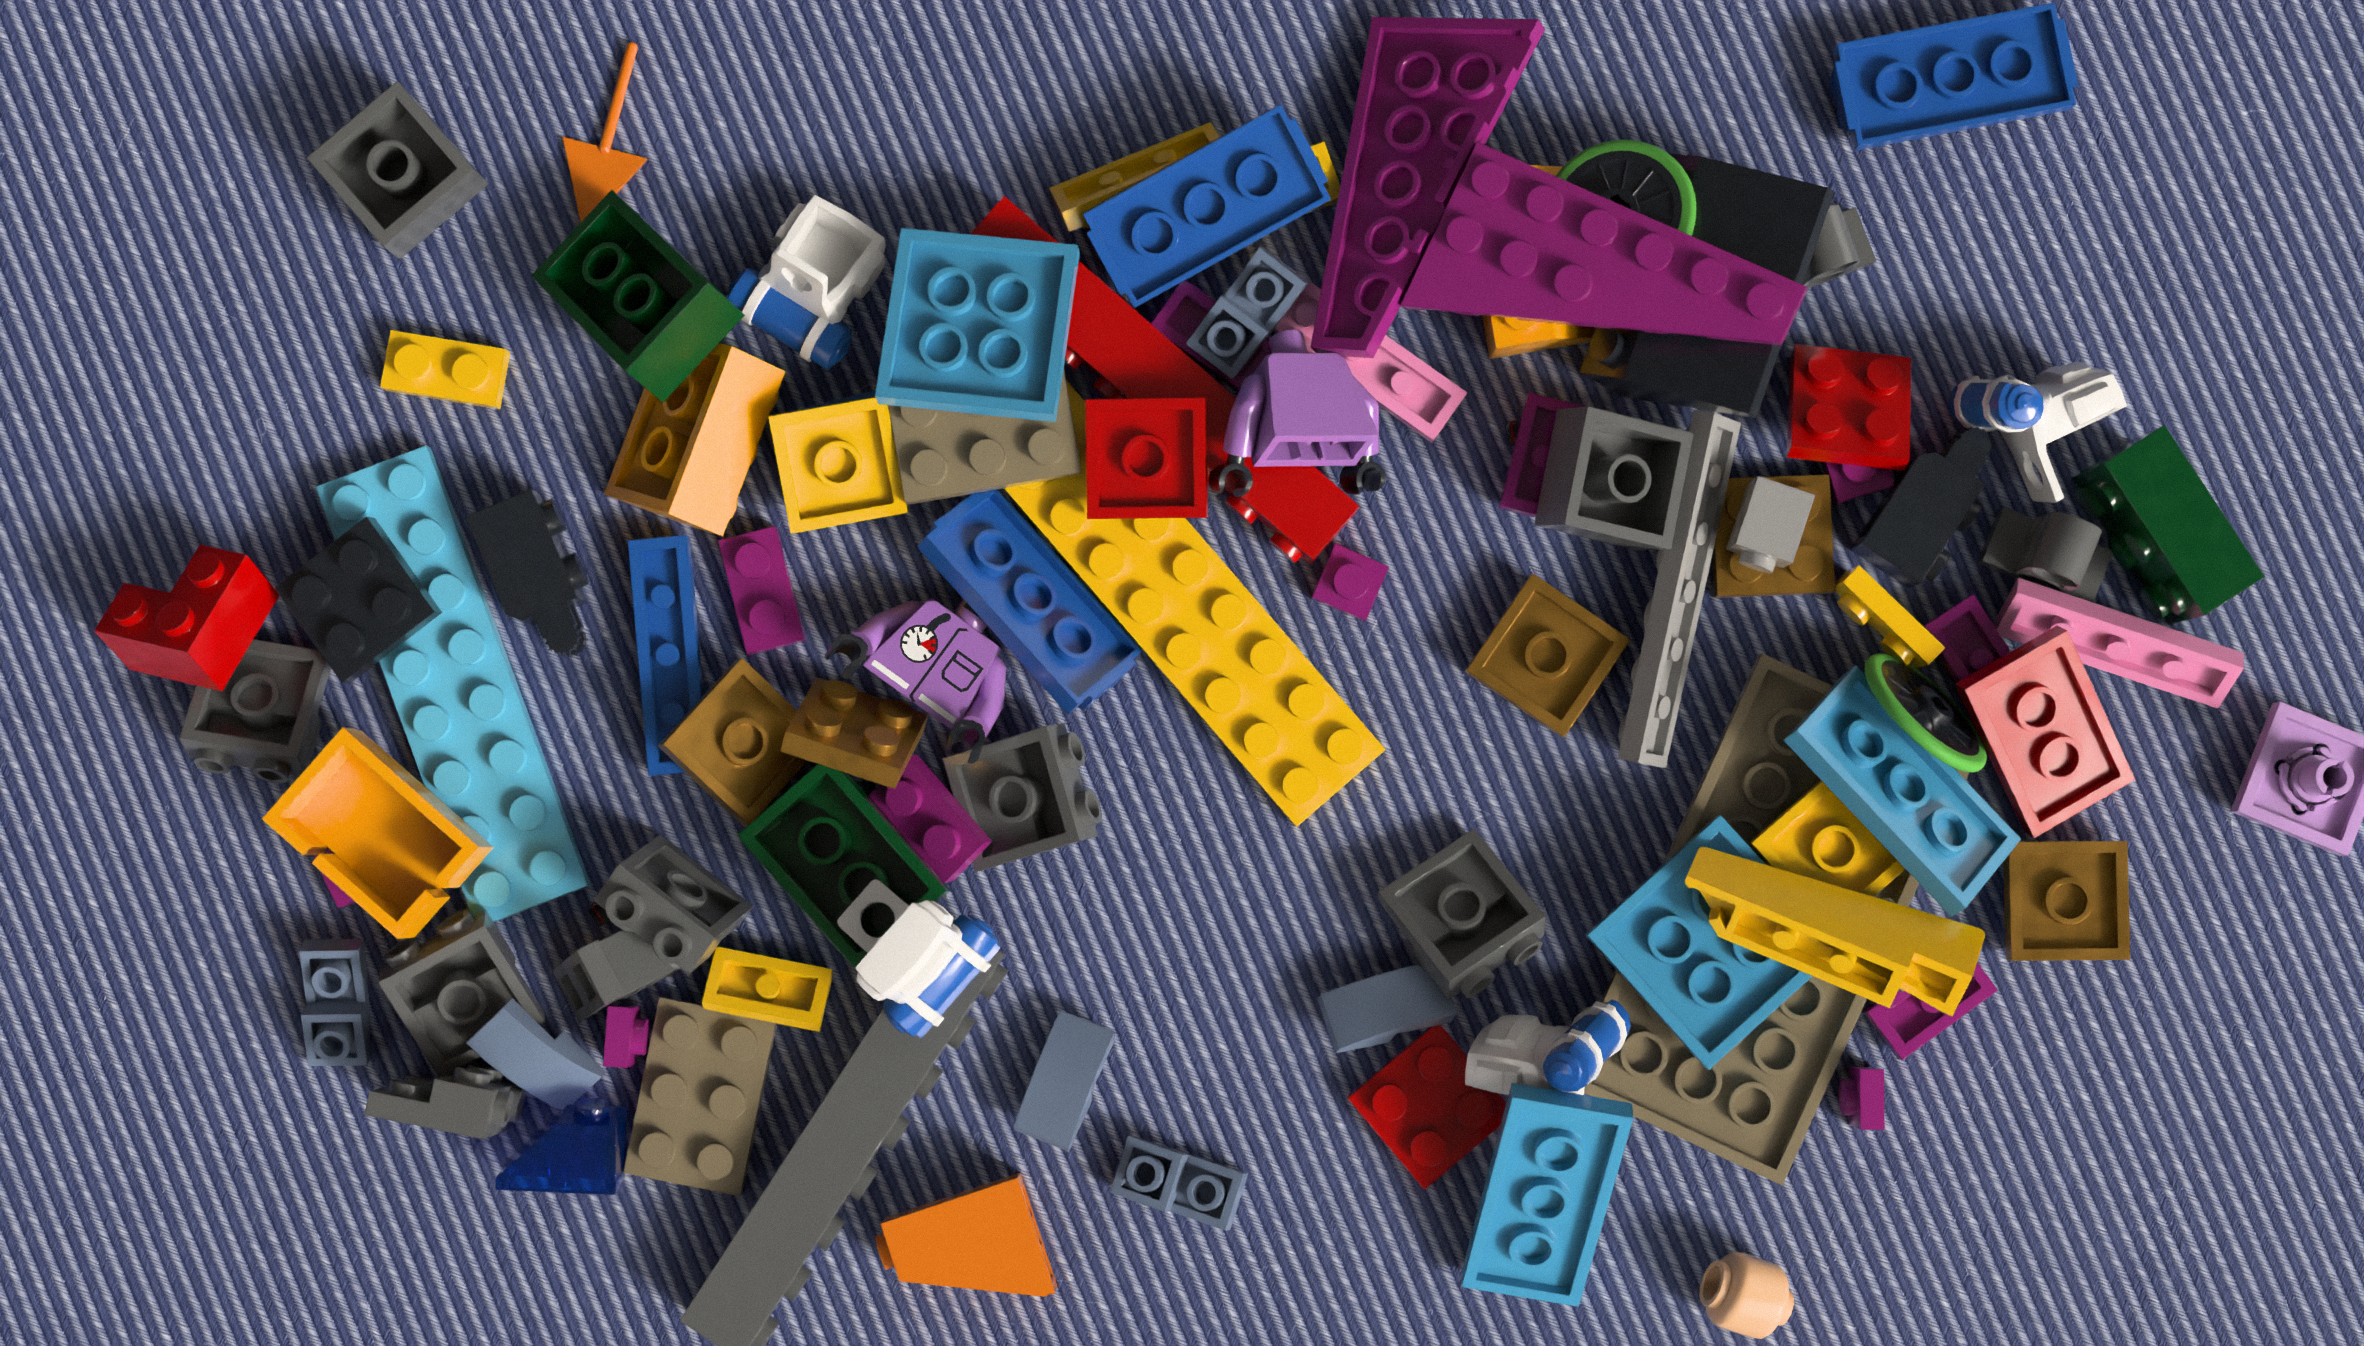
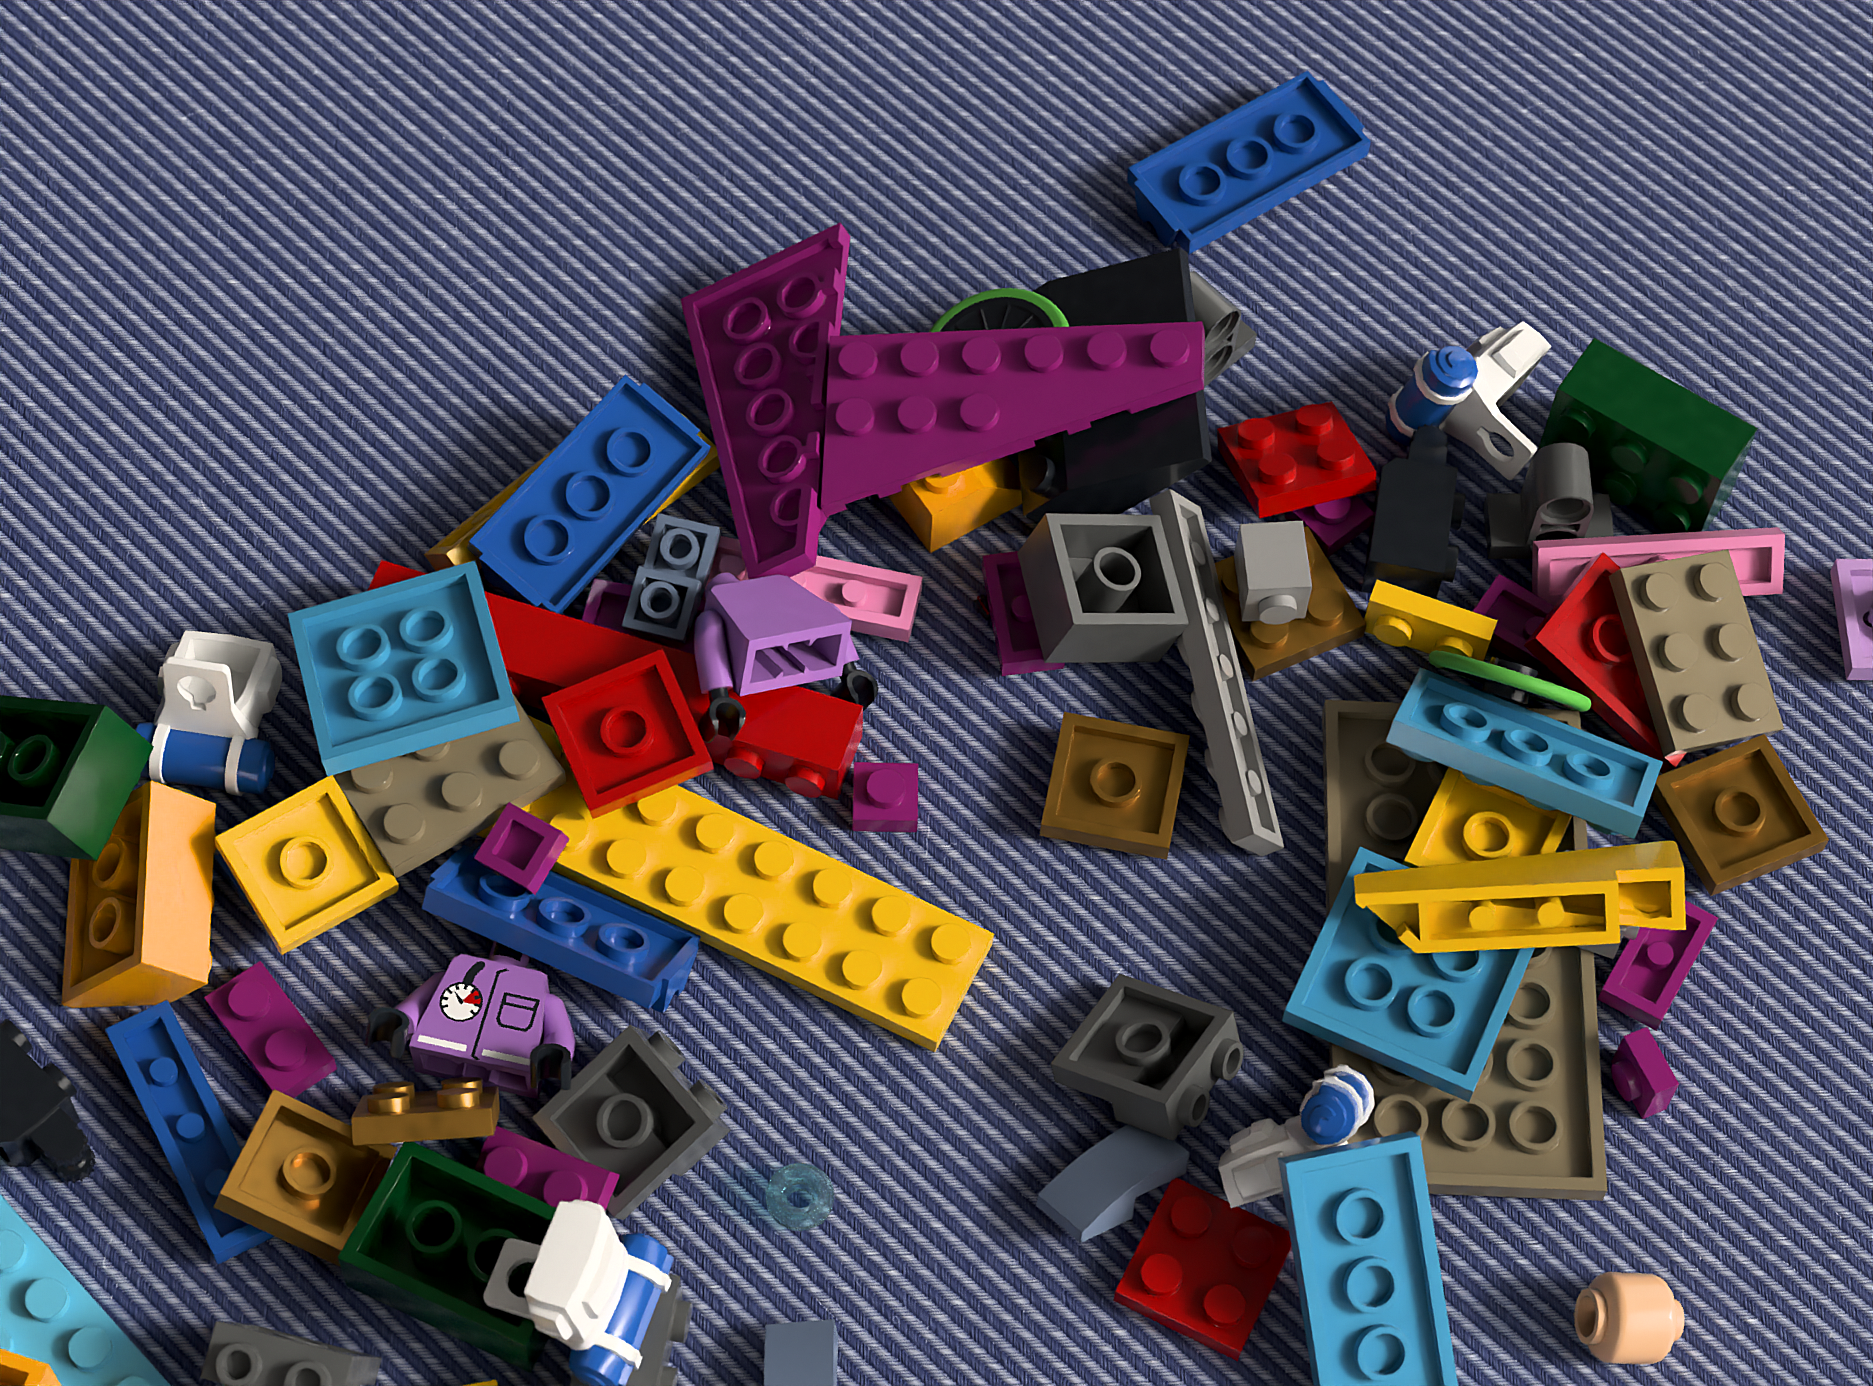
camera: 25 degrees left, 25 degrees down
(1019, 525) = (521, 848): none -> magenta plate
(1114, 920) = (799, 1178): none -> clear light blue plate
(2104, 748) = (1695, 652): none -> dark tan plate

